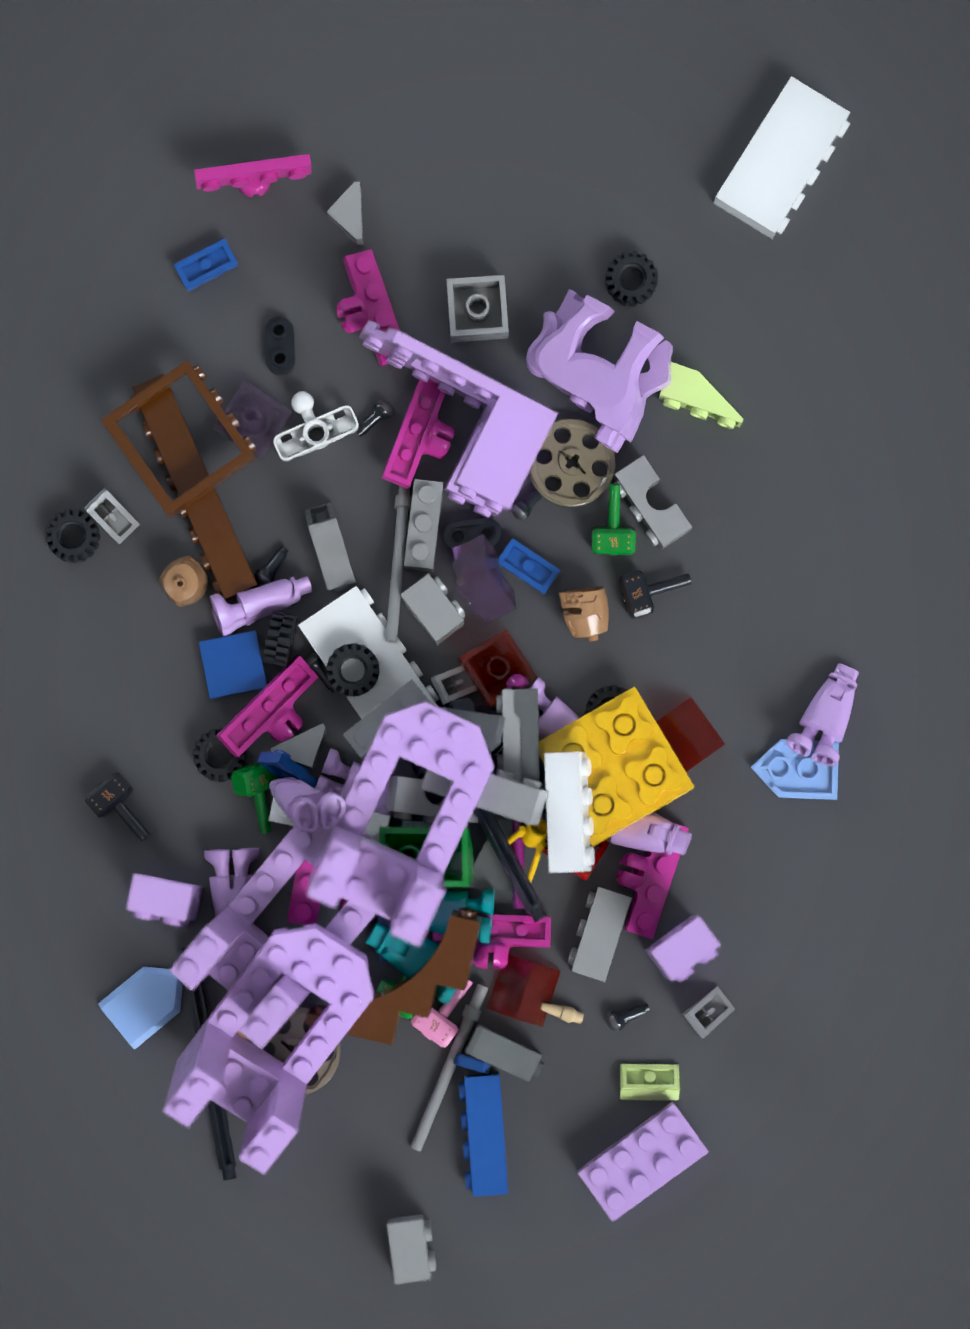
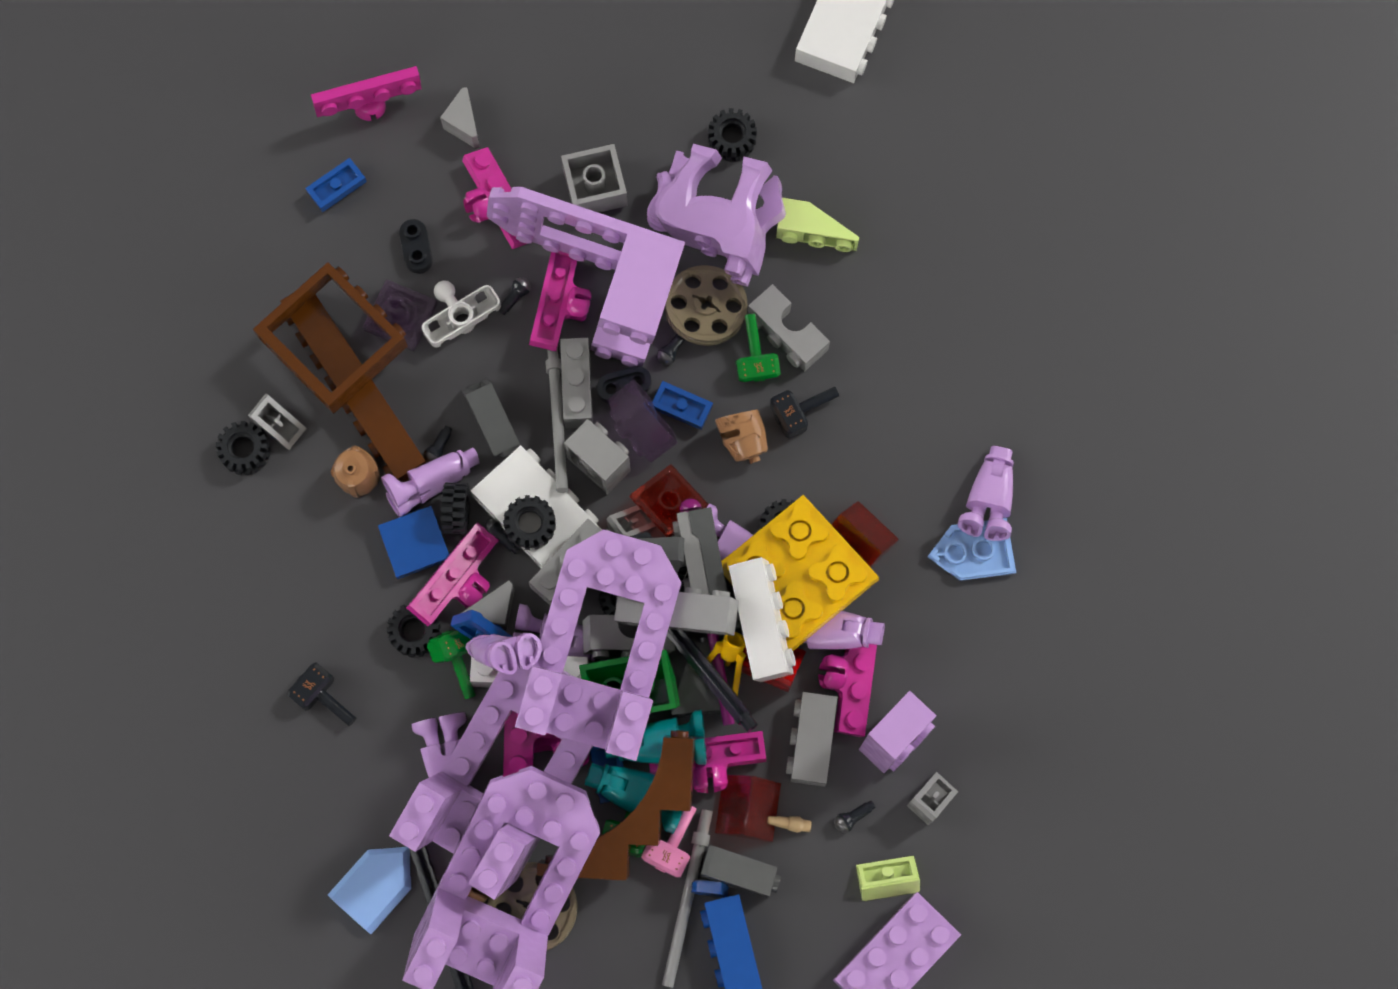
camera: 10 degrees left, 10 degrees down
(165, 898) = (377, 771): lavender brick -> none

